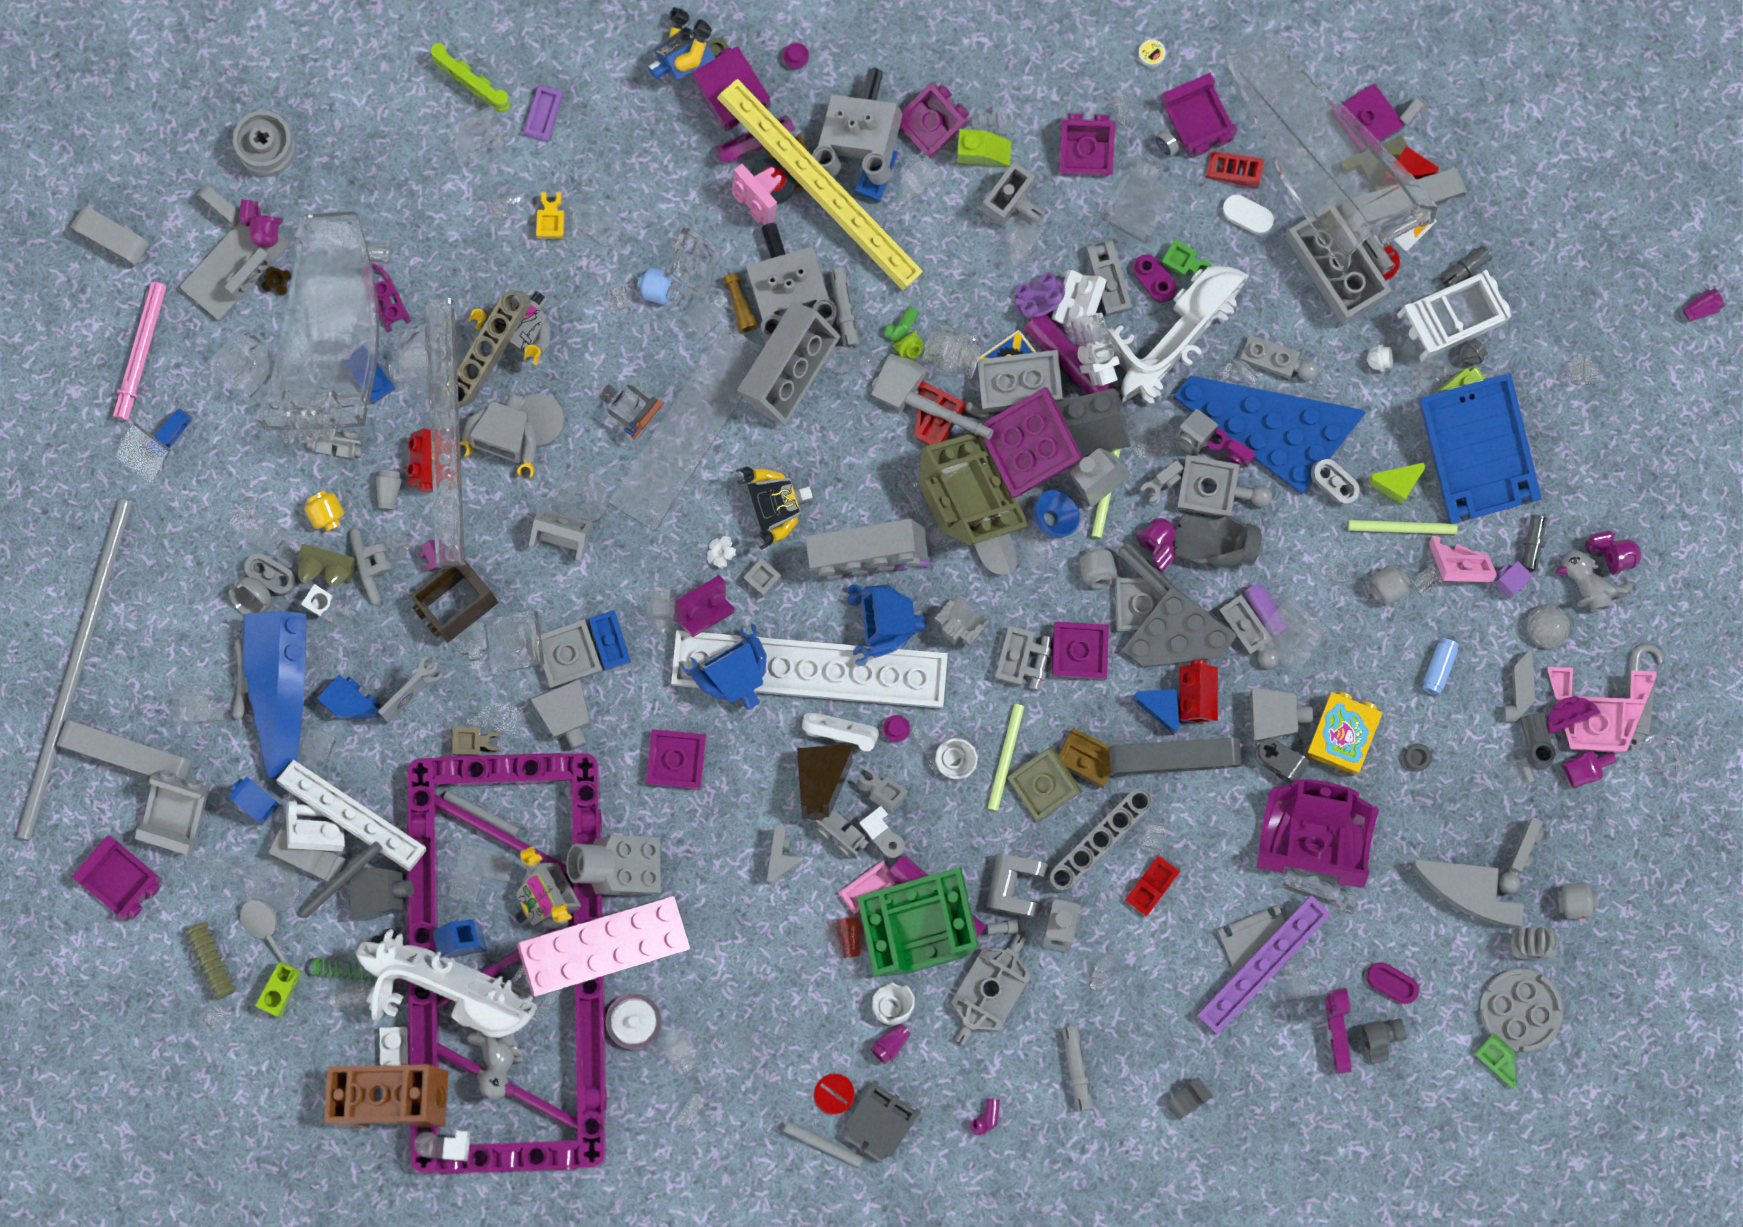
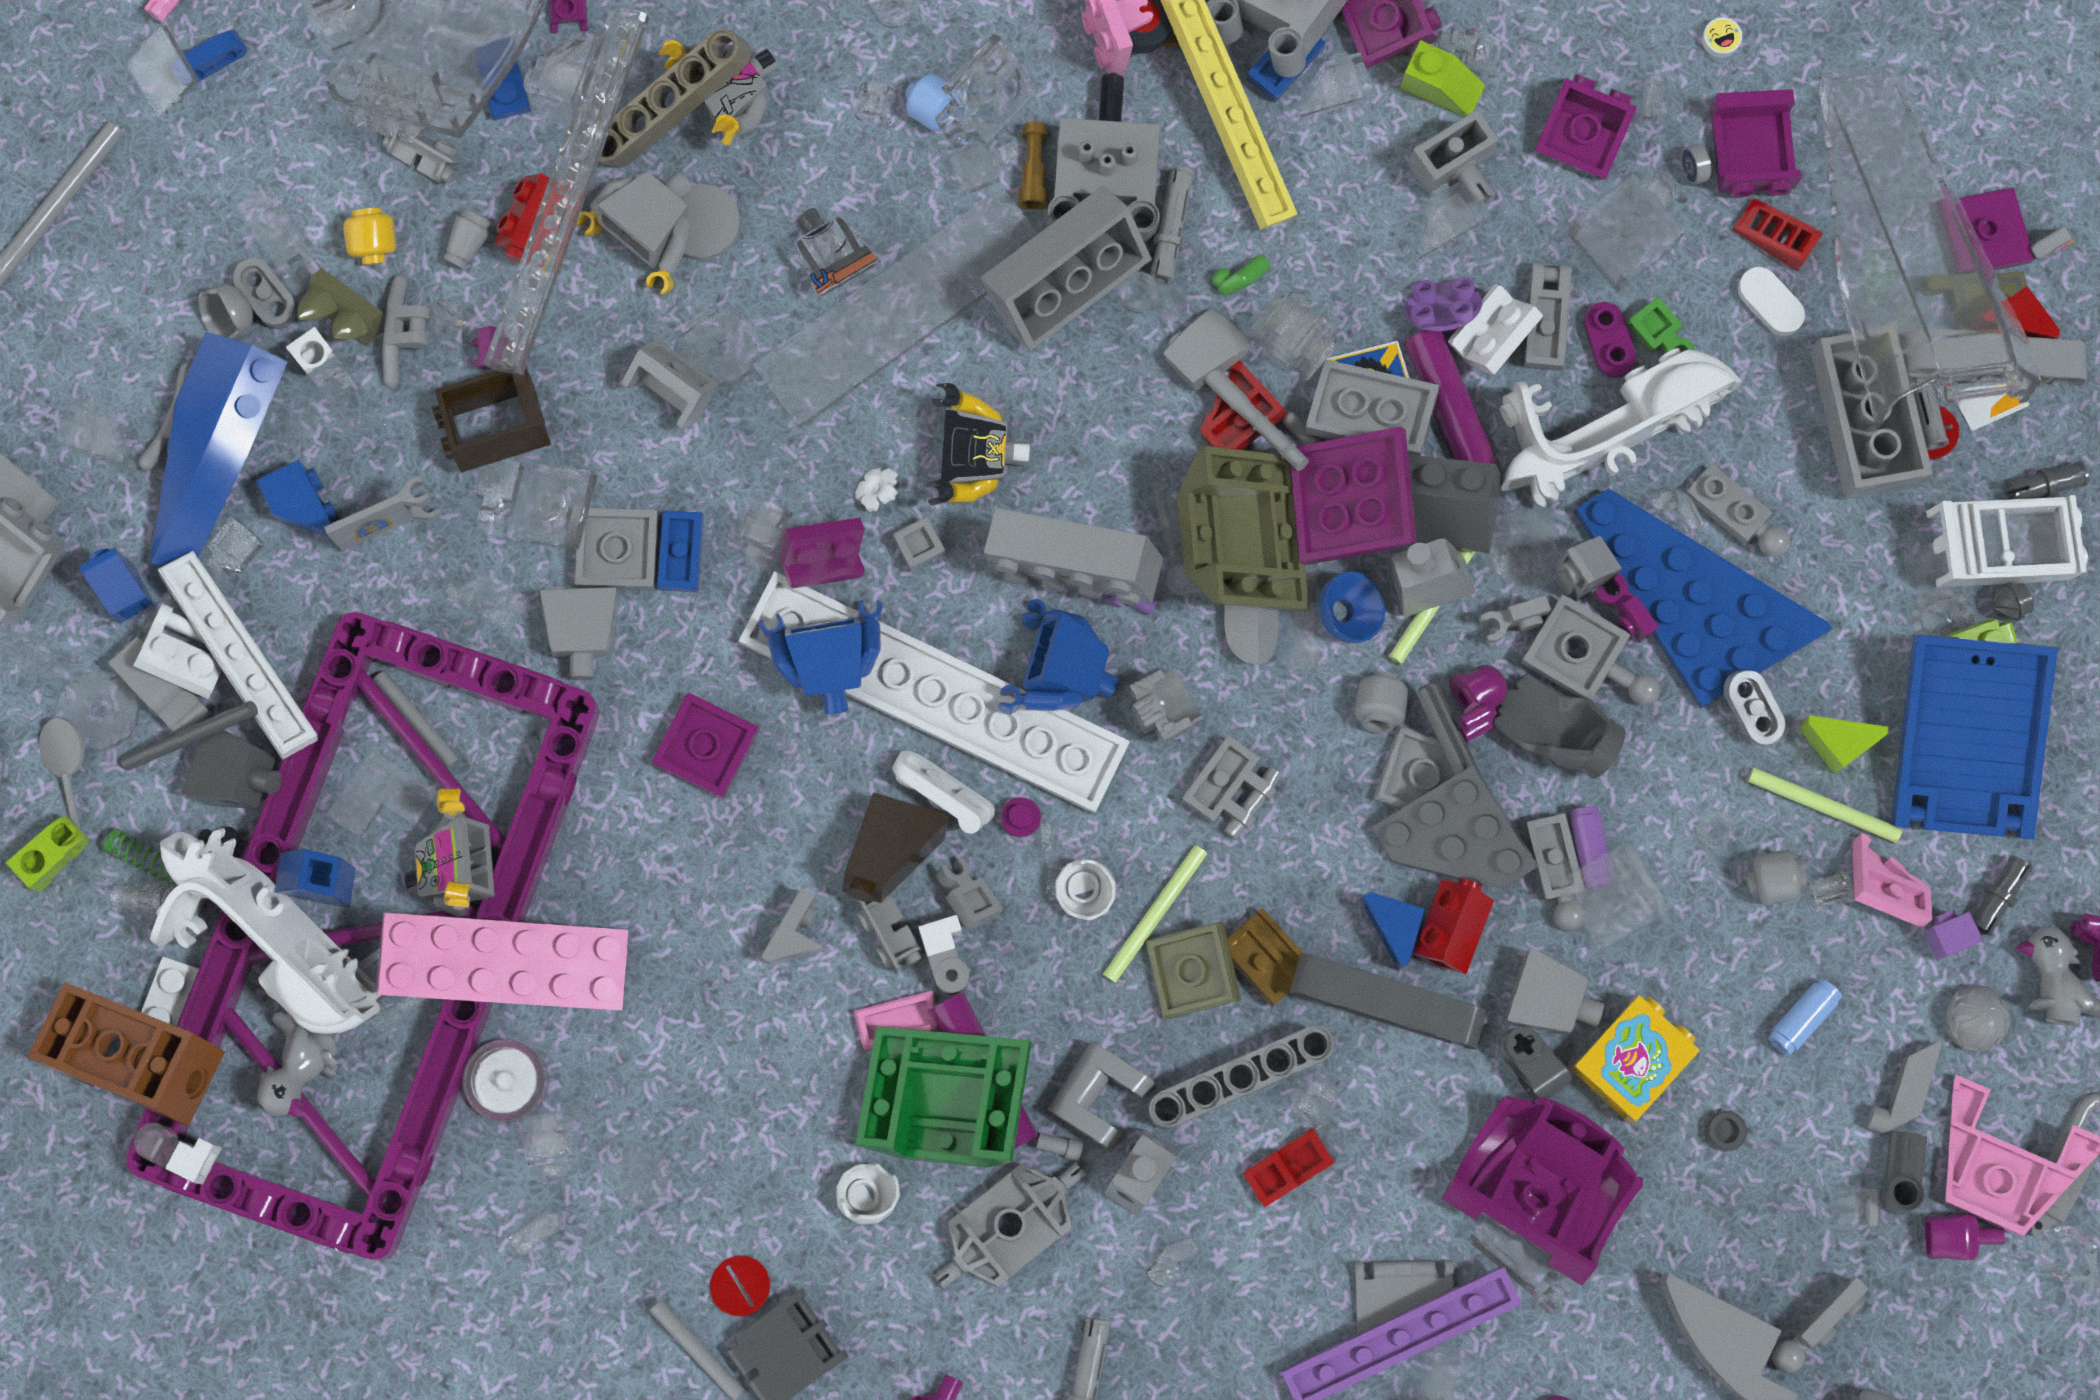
camera: 20 degrees right, 0 degrees up
(468, 741) = (437, 615): dark tan plate -> none
(617, 865) = (565, 858): light grey brick -> none
(849, 935) = (845, 1075): clear red cone -> none
(889, 1044) = (843, 1246): magenta cone -> none
(909, 346) = (1240, 308): lime plate -> none
(1080, 650) = (1313, 806): magenta plate -> none
(1094, 348) = (1490, 400): clear hips -> none
(1380, 358) = (1881, 562): white plate -> none
(1570, 712) = (1964, 1151): magenta tile -> none

